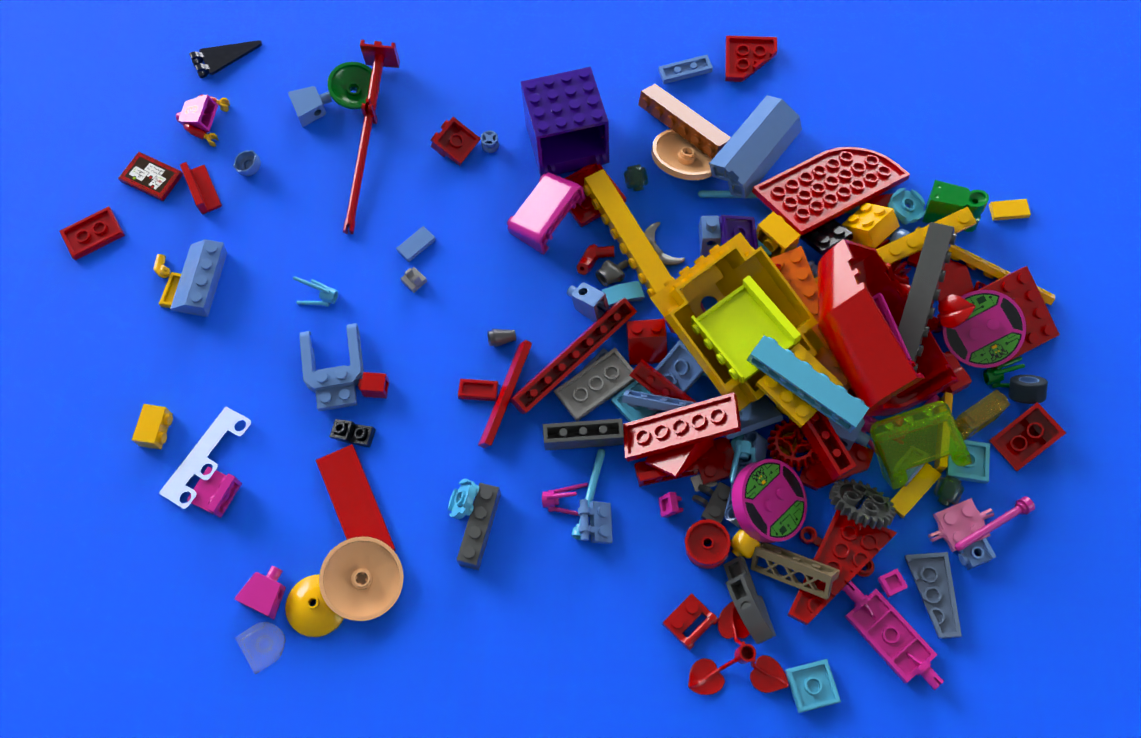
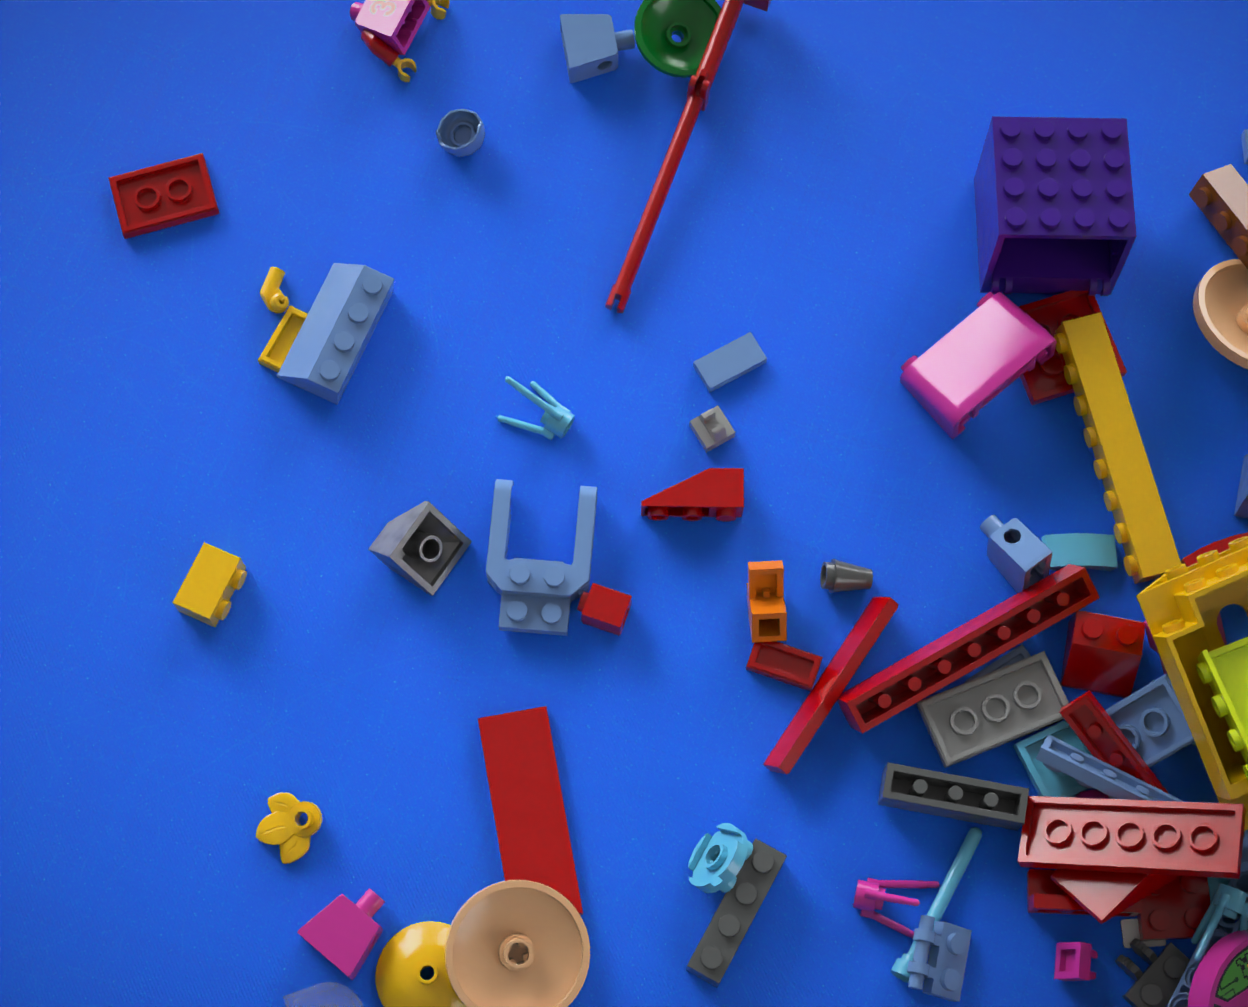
camera: 10 degrees right, 5 degrees up
(150, 176) = (285, 113): tile -> none
(198, 456) = (277, 656): piece -> none
(201, 188) = (371, 158): red panel -> none
(215, 493) = (294, 729): dark pink bracket -> none
(220, 546) = (284, 827): none -> yellow plate
(266, 377) = (421, 546): none -> flat silver slope
(352, 433) = (549, 685): black slope -> none
(415, 313) = (706, 494): none -> red slope
(454, 141) = (840, 183): red plate -> none
(460, 358) = (766, 601): none -> orange brick
(491, 137) = (904, 191): medium blue wheel -> none
(591, 255) = (1040, 464): red arm -> none
(611, 273) = (1068, 507): dark grey piece -> none
(636, 177) = (1153, 337): head -> none
(666, 259) = (1171, 505): light grey piece -> none

